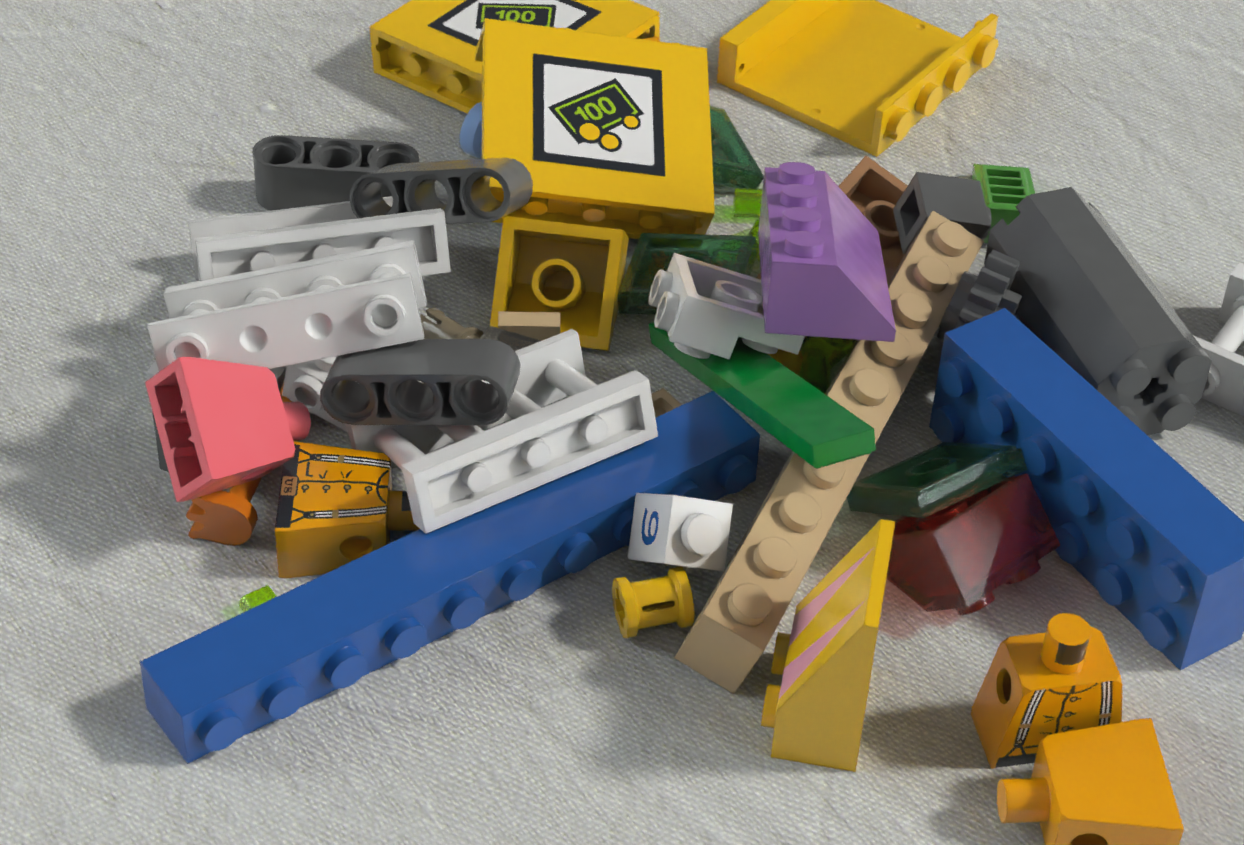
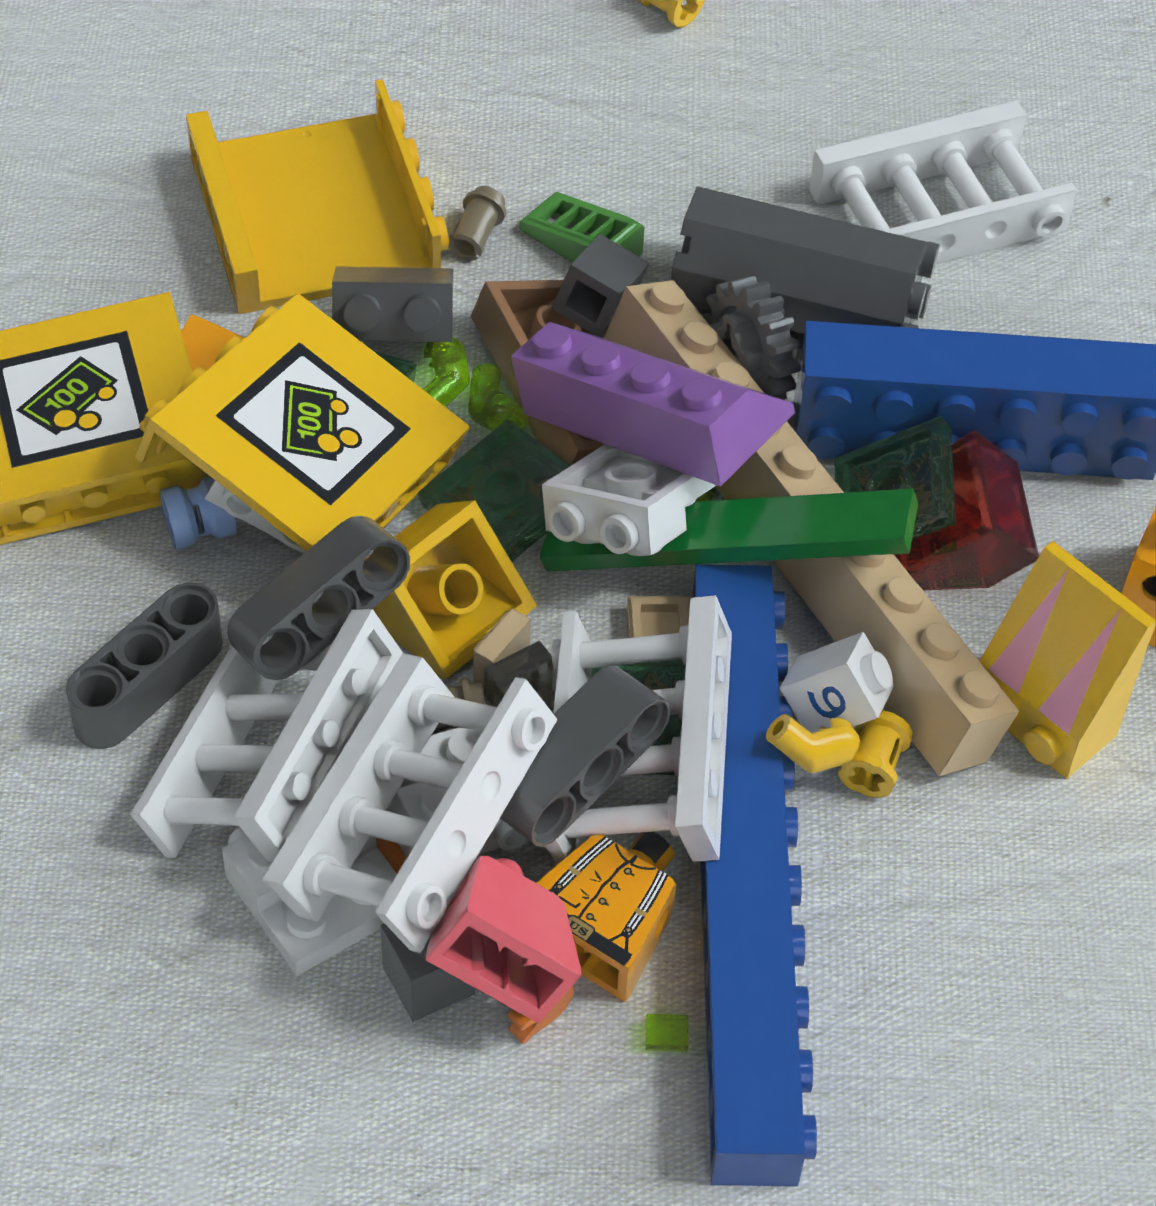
camera: 55 degrees left, 10 degrees up
(598, 546) = (817, 750): none -> yellow arm
(792, 125) = (394, 303): none -> dark grey brick
(940, 140) = (482, 212): none -> dark tan pin

